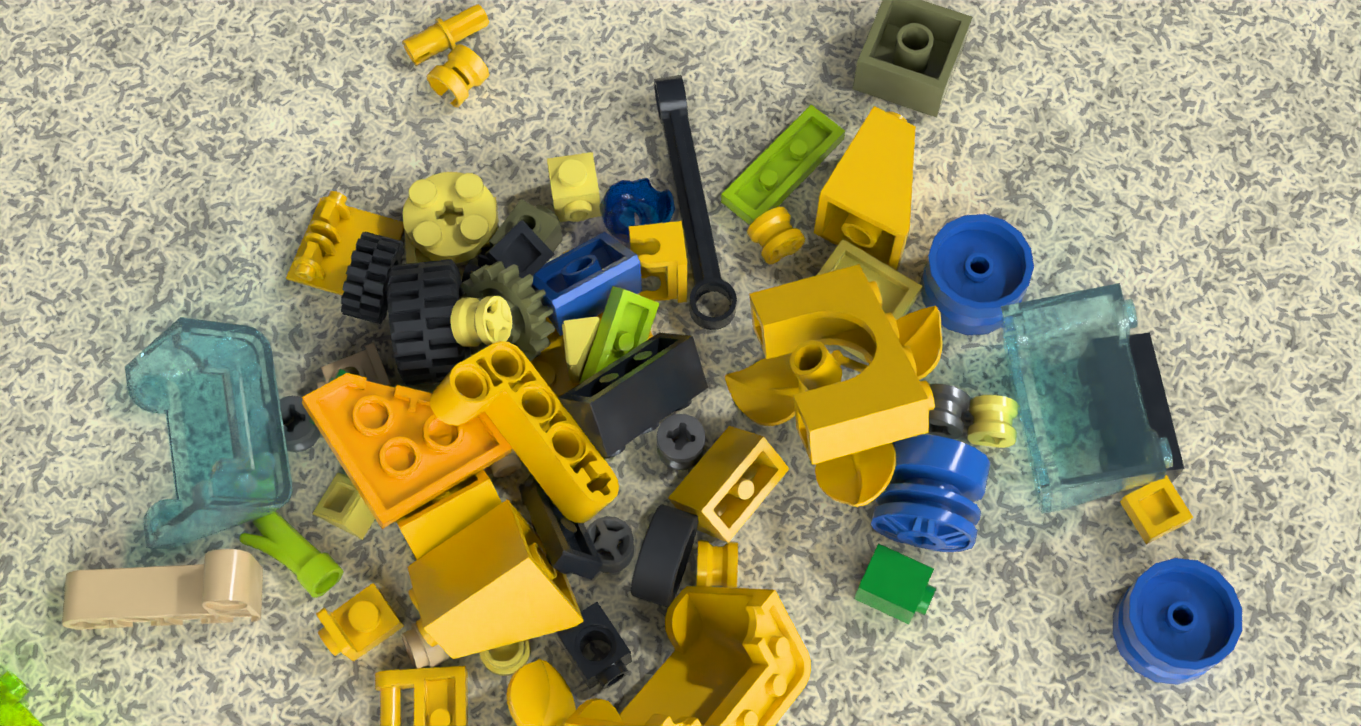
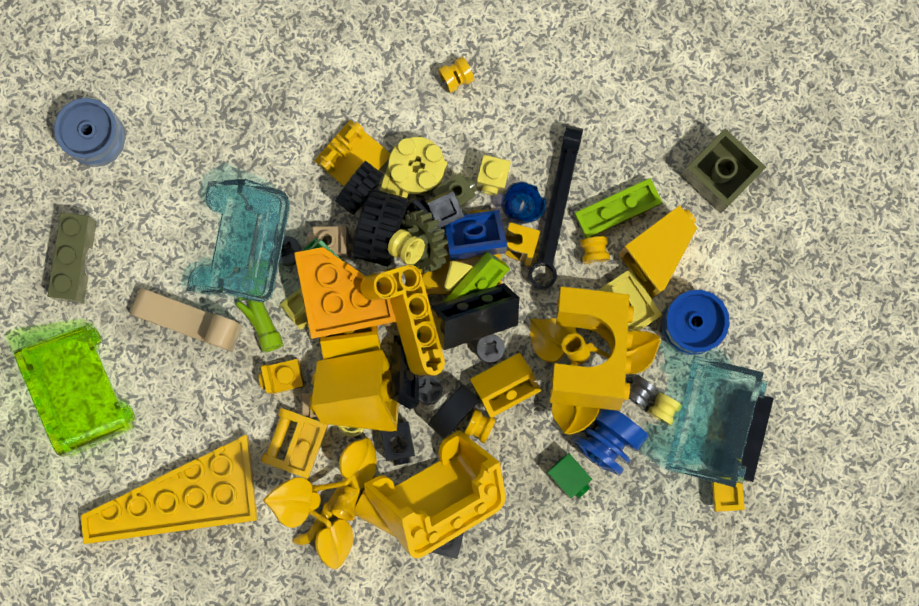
camera: 20 degrees right, 15 degrees up
(445, 34) = (460, 42): yellow axle -> none
(1201, 604) = (724, 566): blue wheel -> none

